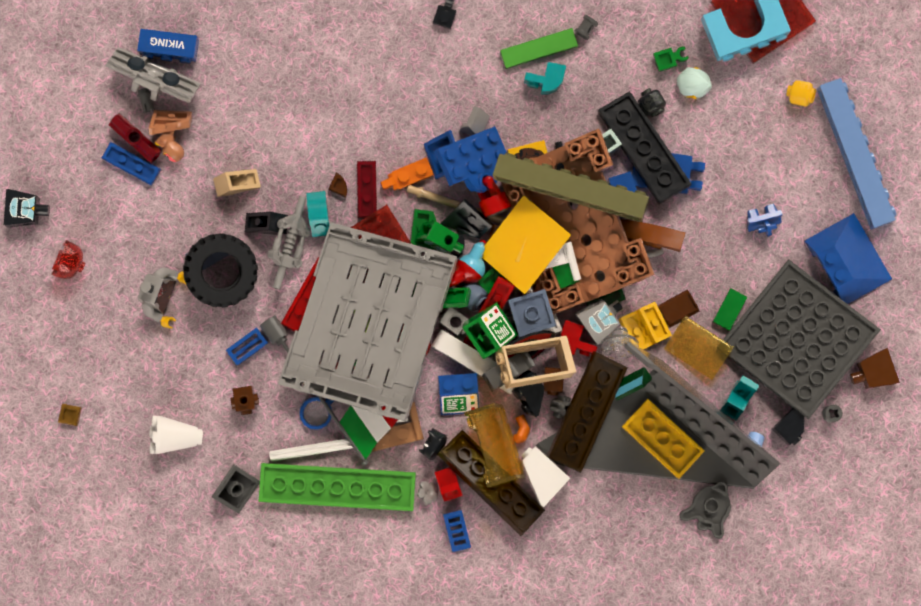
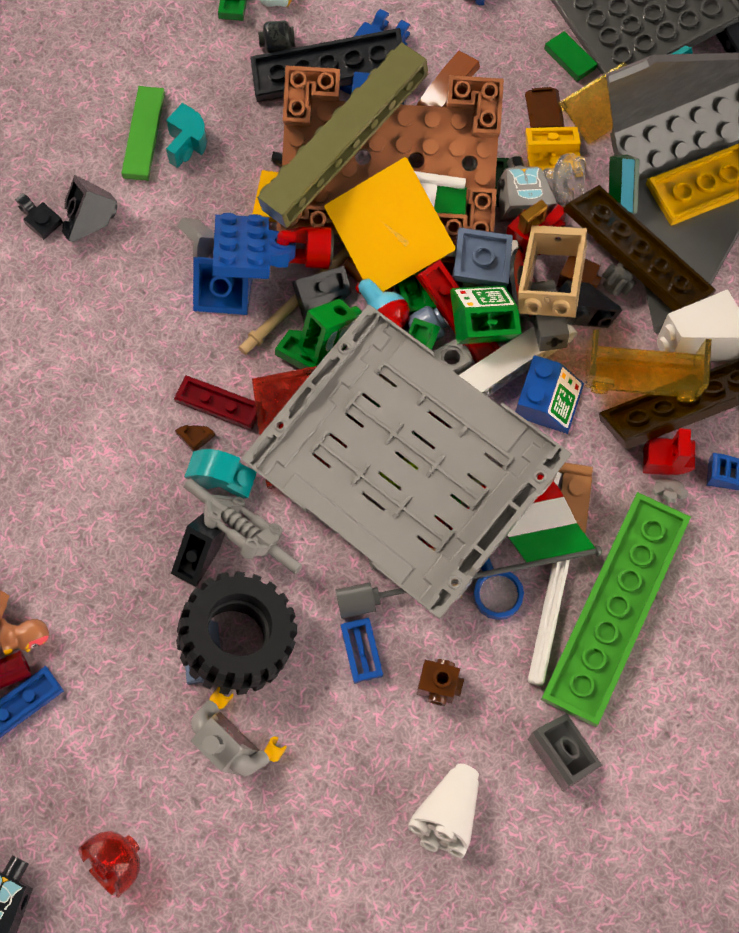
camera: 65 degrees left, 15 degrees down
(236, 182) = (120, 565): tan arch -> none
(297, 309) = (333, 548): red tile -> none
(408, 175) = (225, 343): orange hinge -> none
(434, 444) = (607, 452): black hair -> none
(462, 43) = (87, 209): none -> slope
(523, 430) = (627, 337): orange arm -> none
(573, 333) = (532, 216): none -> pearl gold tile
(586, 27) = (143, 66): dark grey bush -> none

